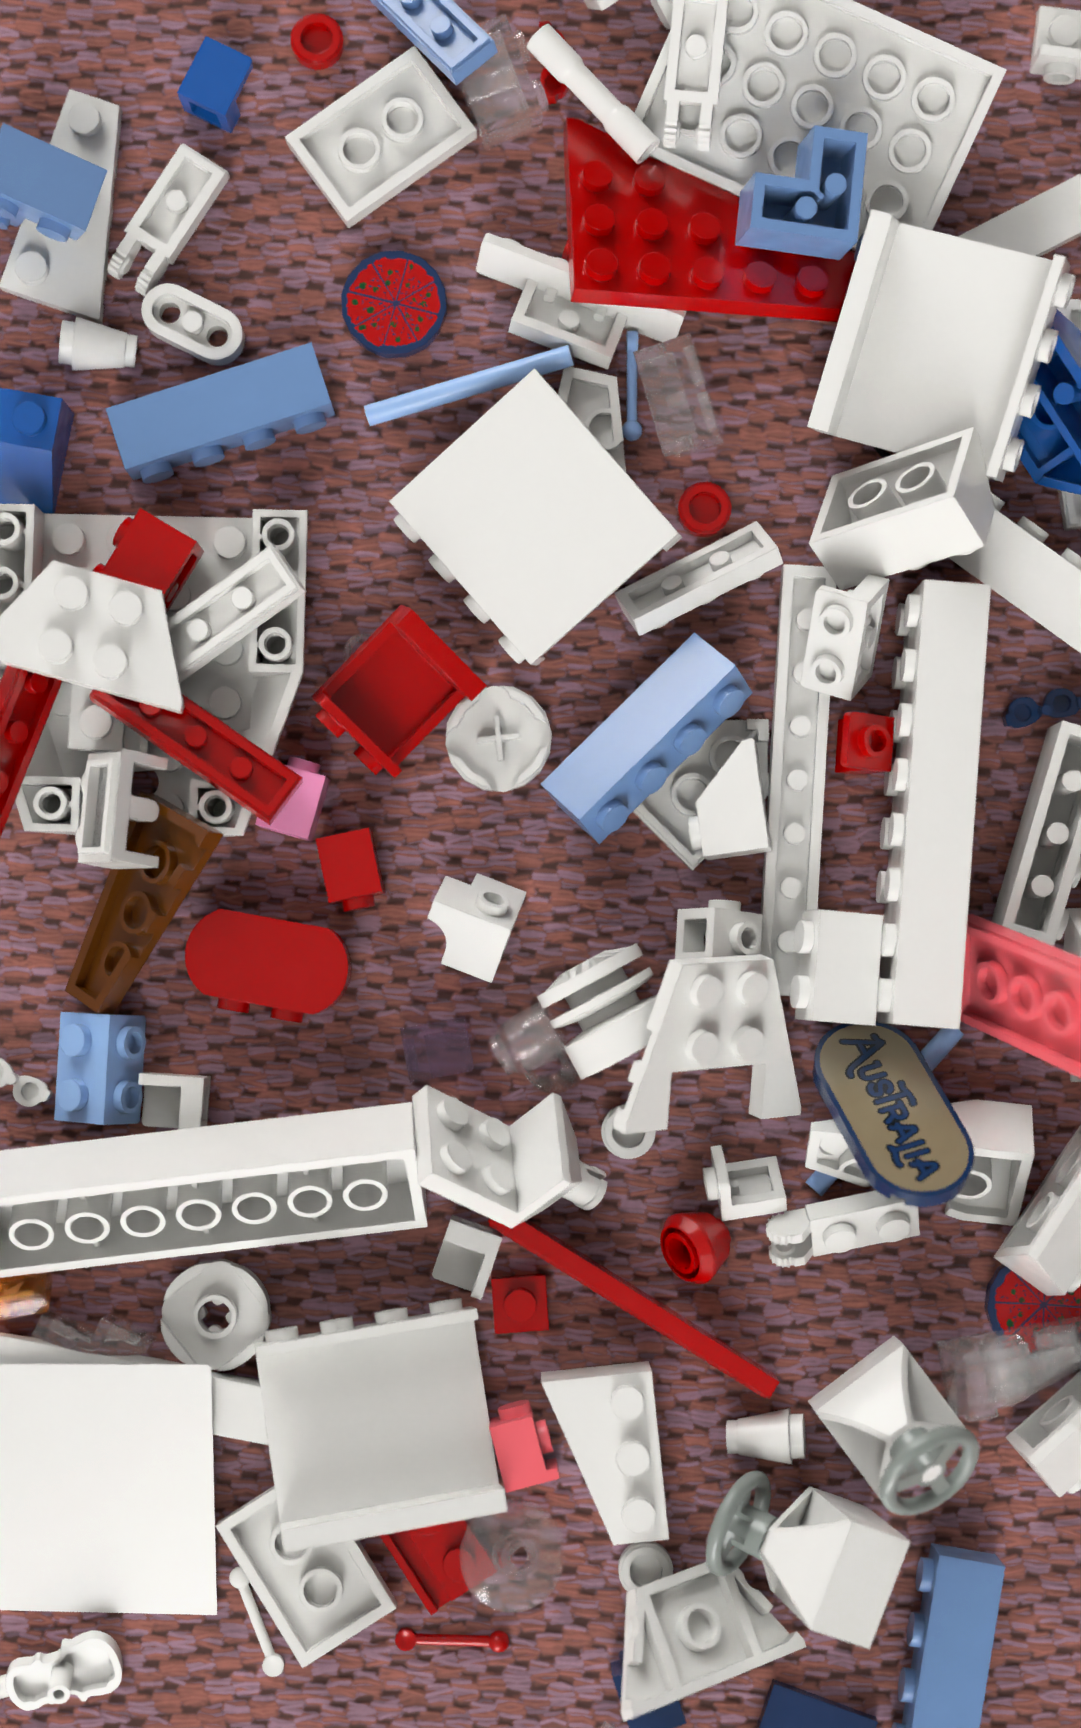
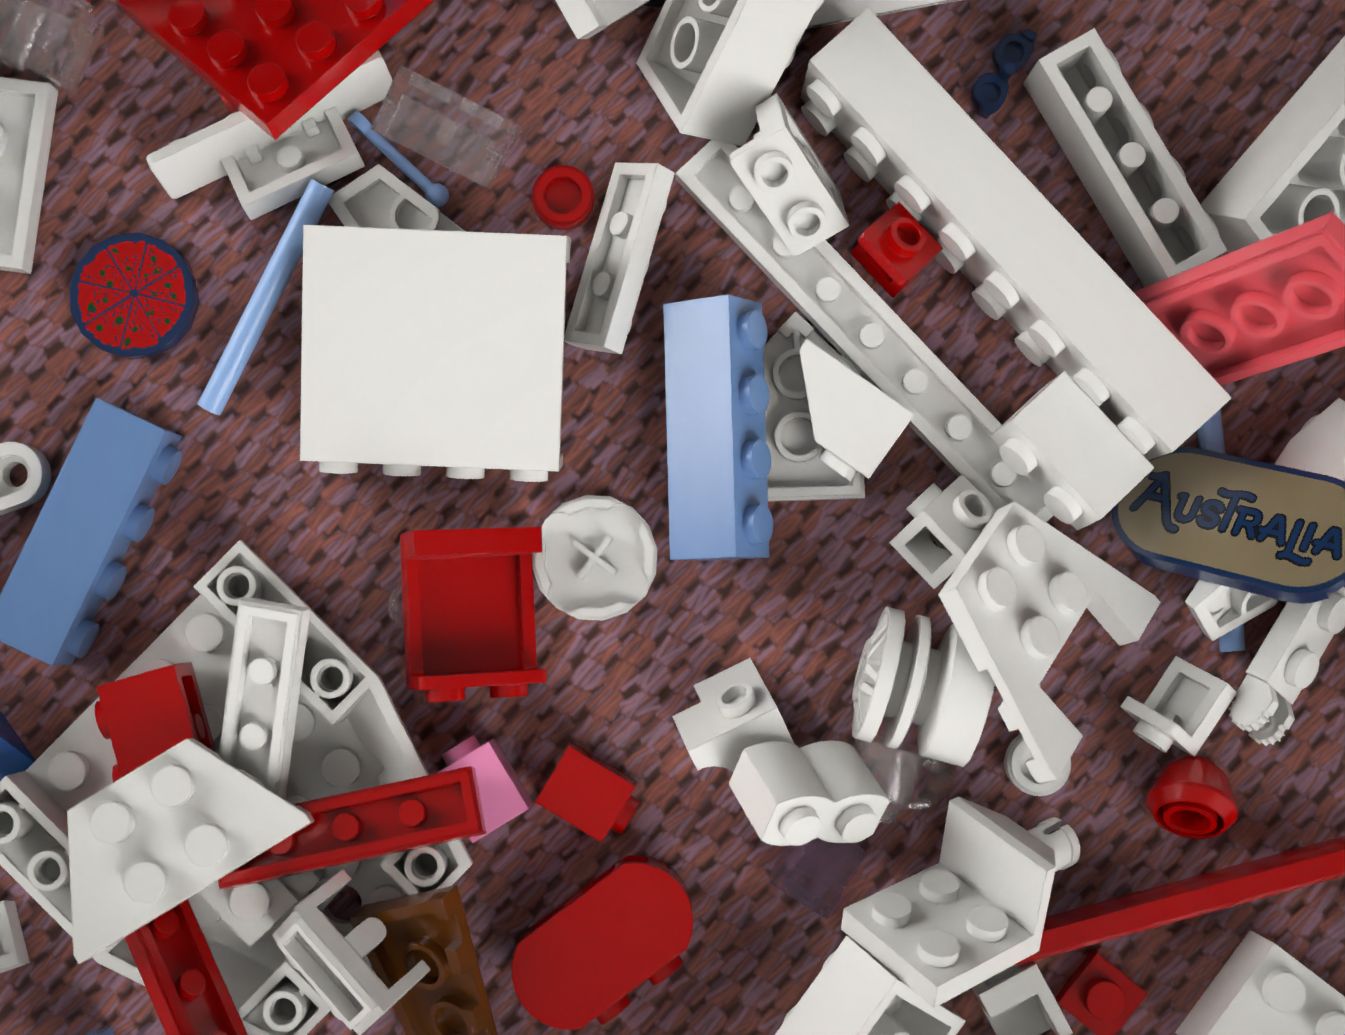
camera: 45 degrees left, 0 degrees up
(476, 997) = (808, 793): none -> white brick

